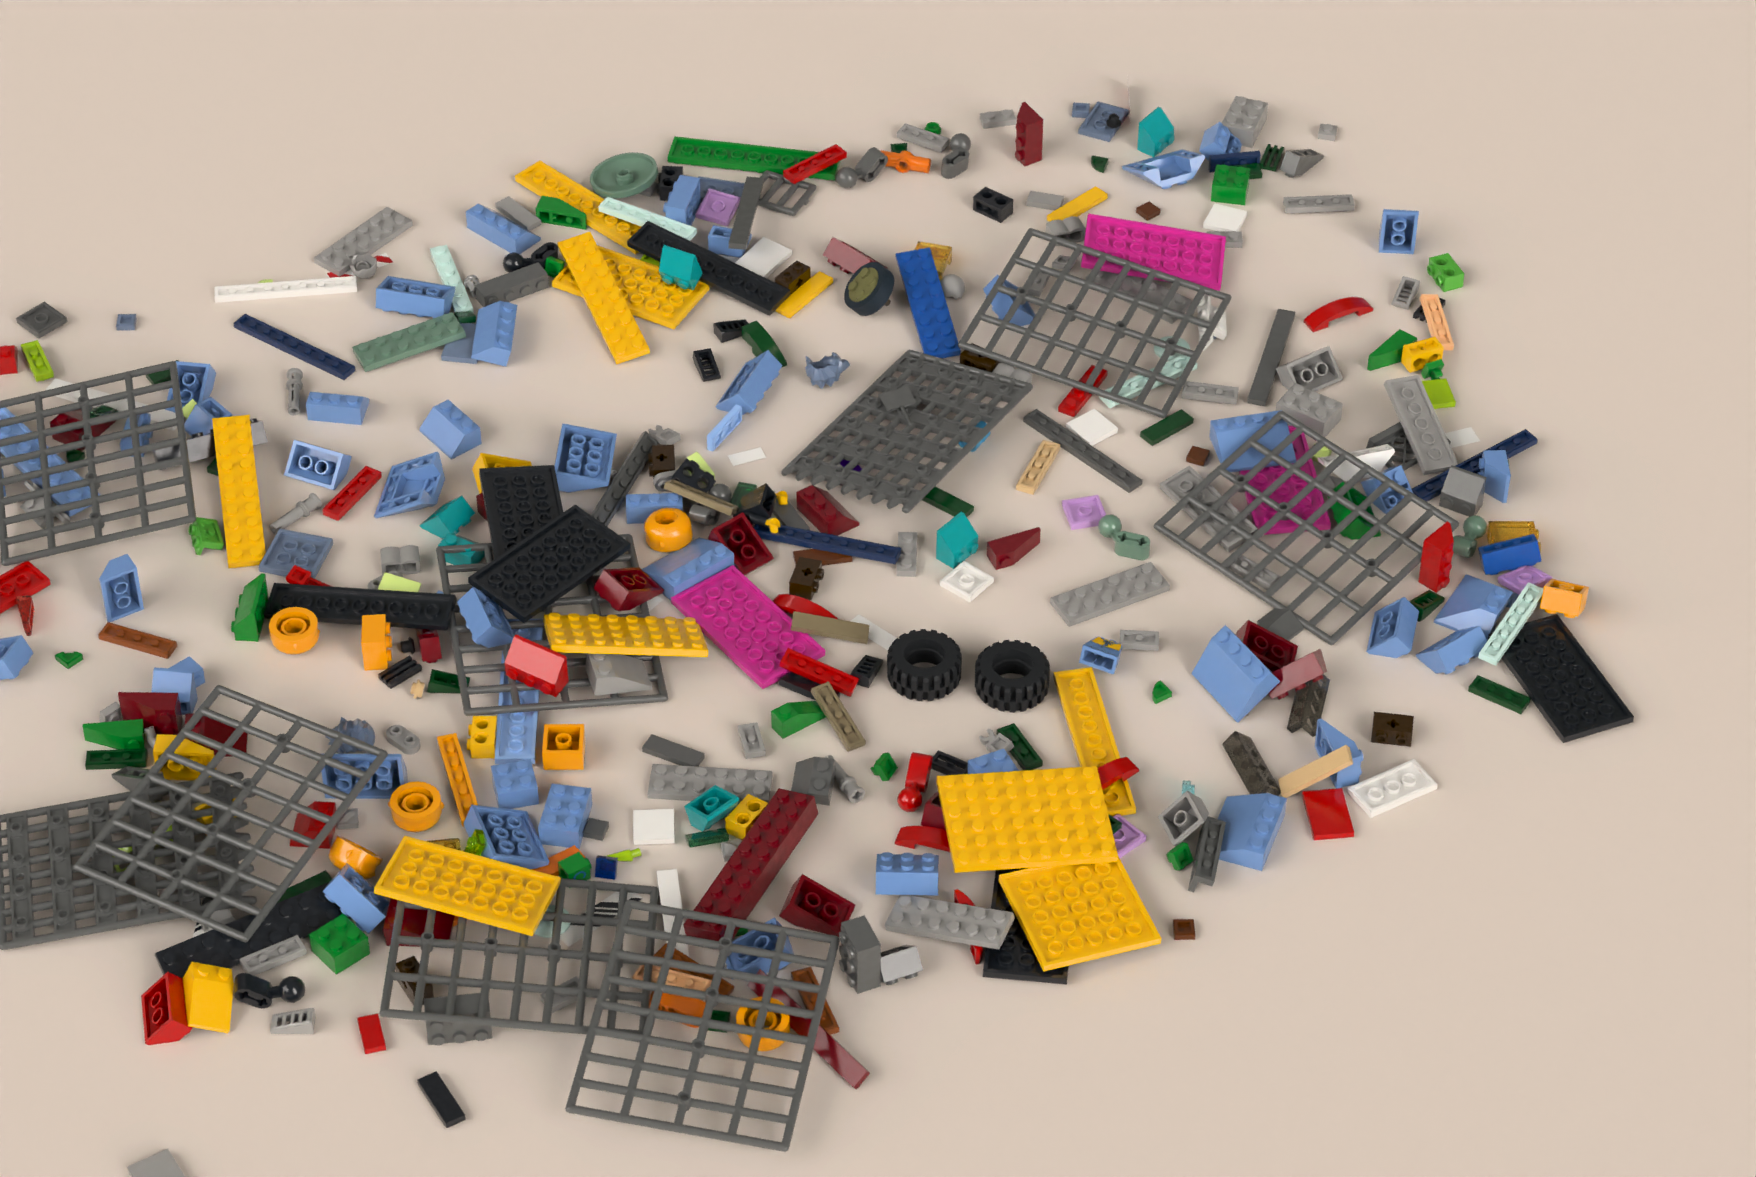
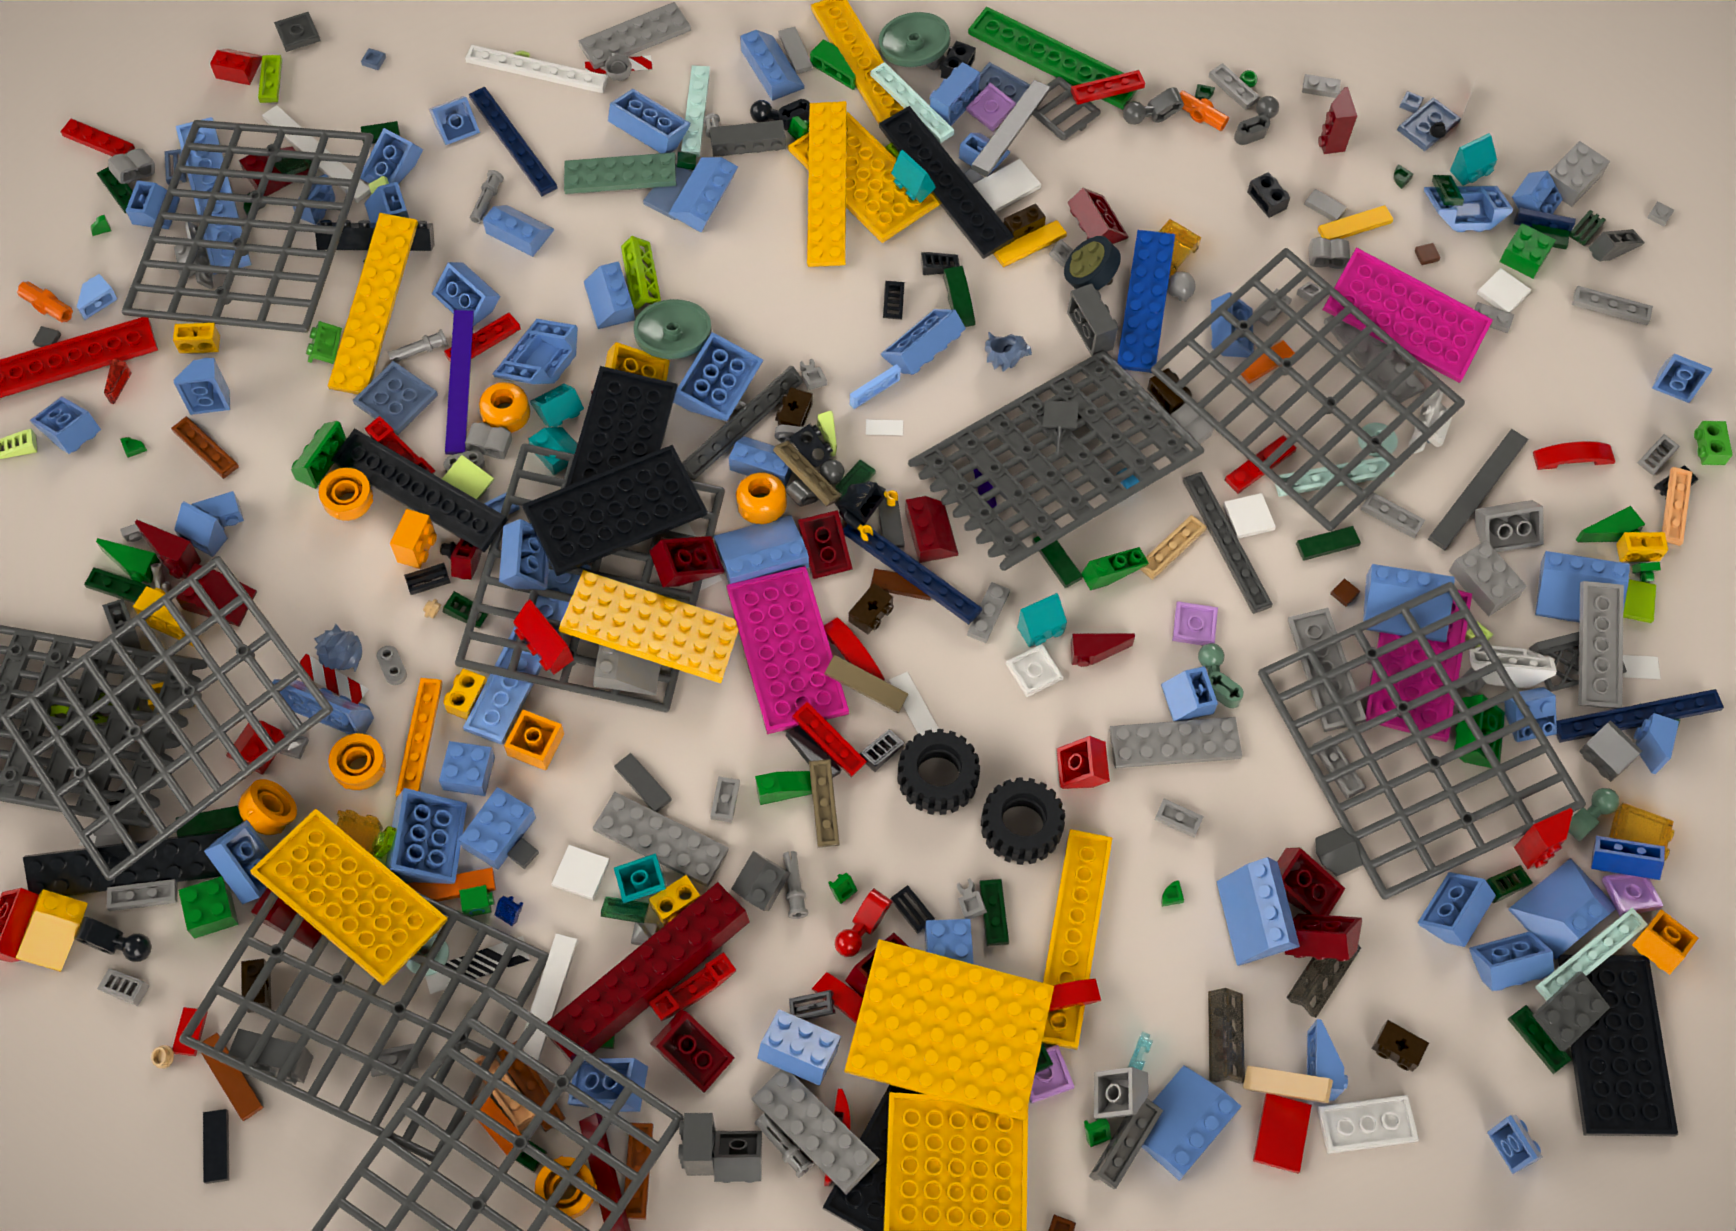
camera: 20 degrees right, 20 degrees up
(86, 561) = (196, 338): none -> yellow brick
(232, 344) = (454, 120): none -> medium blue slope
(350, 525) = (459, 382): none -> dark purple tile
(359, 1055) = (162, 1056): none -> tan plate
(400, 530) = (512, 417): none -> light orange piece
(425, 1051) = (233, 1083): none -> dark orange tile
(468, 404) = (636, 272): none -> lime fence
(522, 435) = (672, 329): none -> sand green dish
(626, 855) = (535, 899): lime bar -> none
(806, 858) = (694, 988): none -> red slope
(835, 292) = (1061, 252): none -> light grey tile
(888, 327) = (1092, 319): none -> dark grey brick
(911, 847) = (814, 1014): none -> black tile
(936, 948) = (793, 1152): none -> light grey pin
(994, 493) = (1112, 568): none -> green slope
(1041, 626) = (1083, 763): none -> red slope
(1050, 321) = (1264, 364): none -> orange tile
(1101, 654) = (1130, 826): medium blue torso -> none
(1106, 555) = (1190, 695): none -> medium blue slope
(1143, 159) = (1447, 190): none -> dark green tile
(1370, 398) = (1561, 578): none -> medium blue slope
(1511, 755) = (1515, 1143): none -> medium blue slope
(1513, 661) = (1571, 1011): none -> dark grey plate

